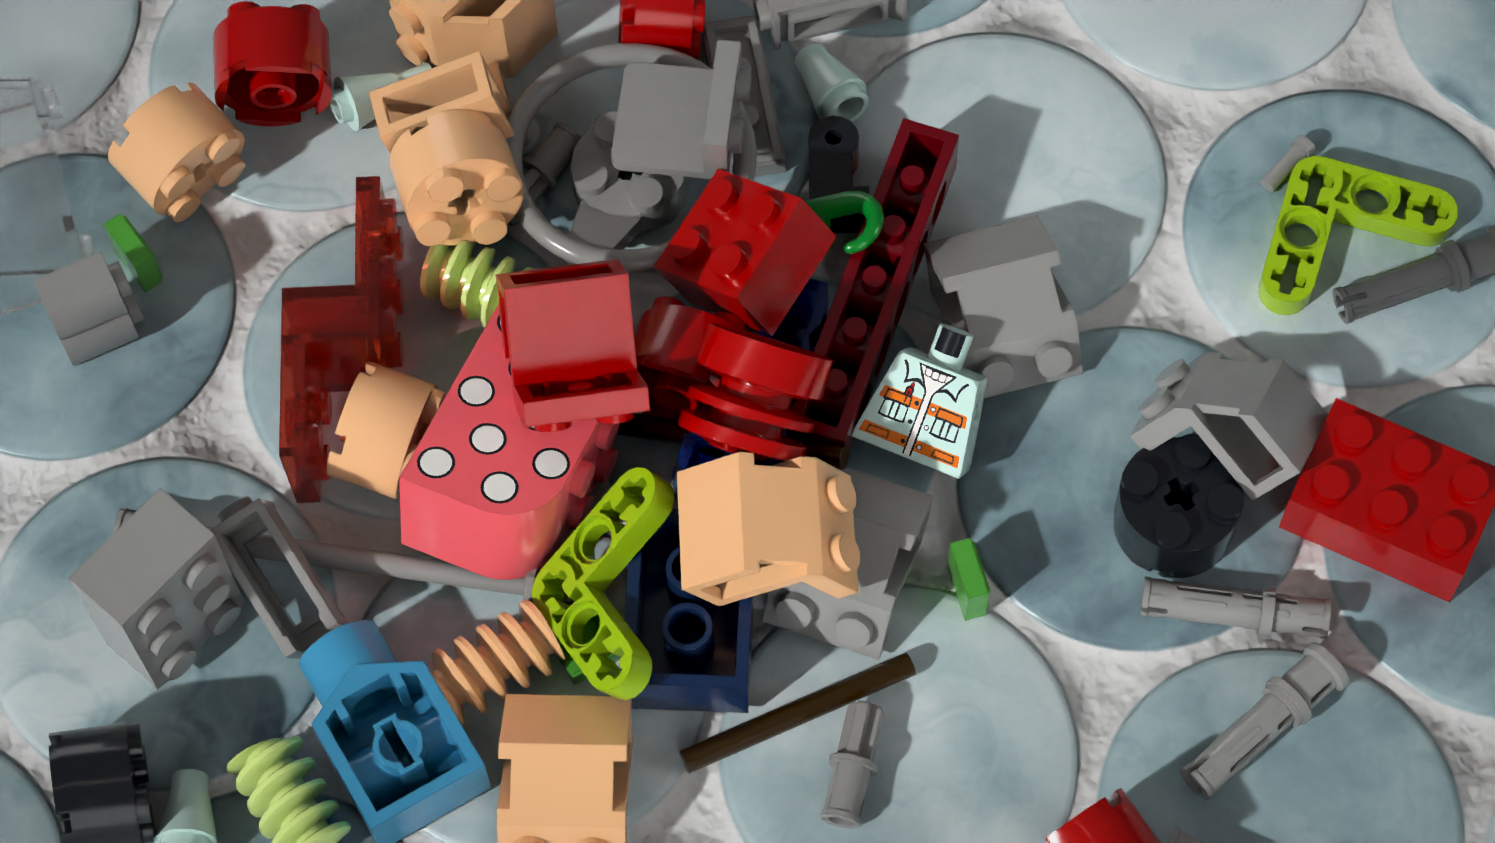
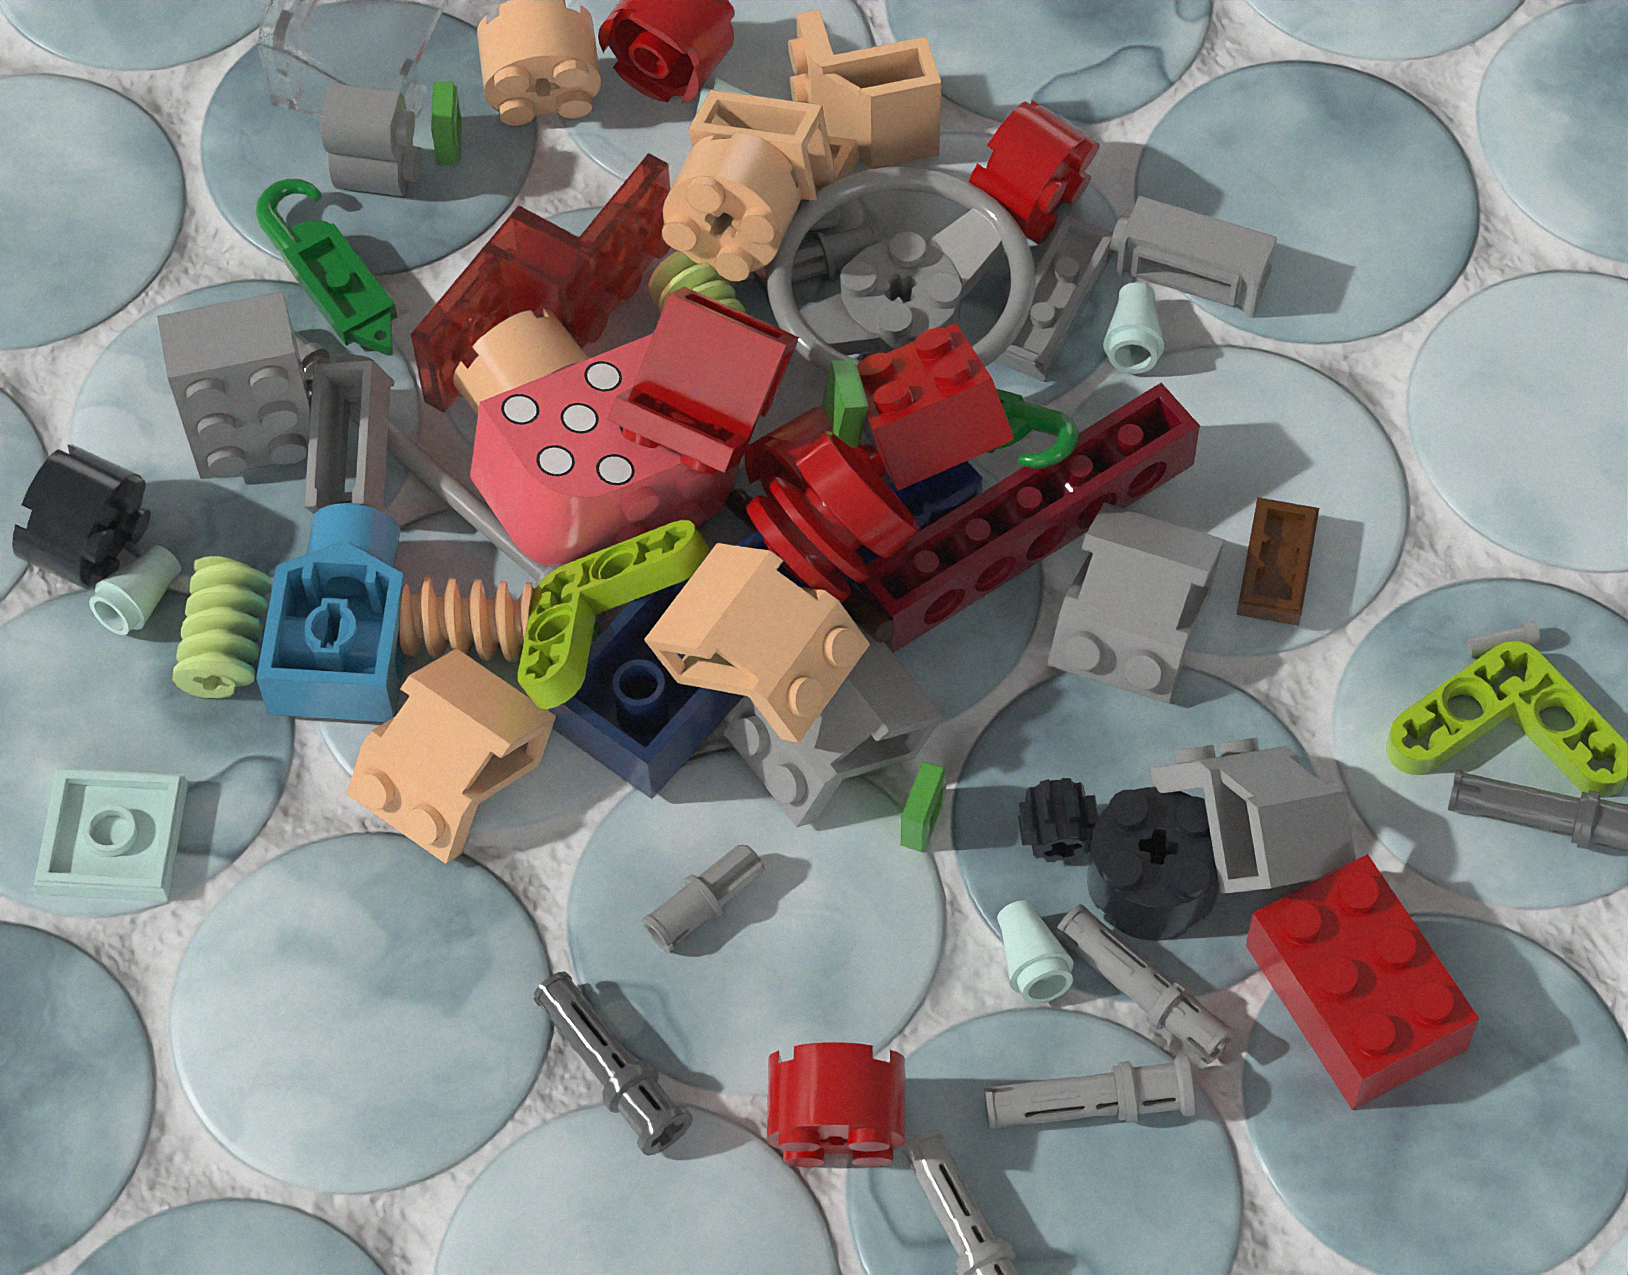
camera: 35 degrees right, 5 degrees down
(132, 441) = (329, 270): none -> green plate
(682, 116) = (963, 264): light grey bracket -> none
(687, 290) = (845, 401): none -> bright green tile
(797, 713) = (693, 826): dark brown bar -> none
(831, 164) = (1083, 390): black leg -> none
(928, 405) = (998, 639): light aqua torso -> none
(1079, 521) = (1058, 820): none -> black gear
(1080, 207) = (1278, 561): none -> reddish brown plate
(1139, 640) = (1034, 956): none -> light aqua cone

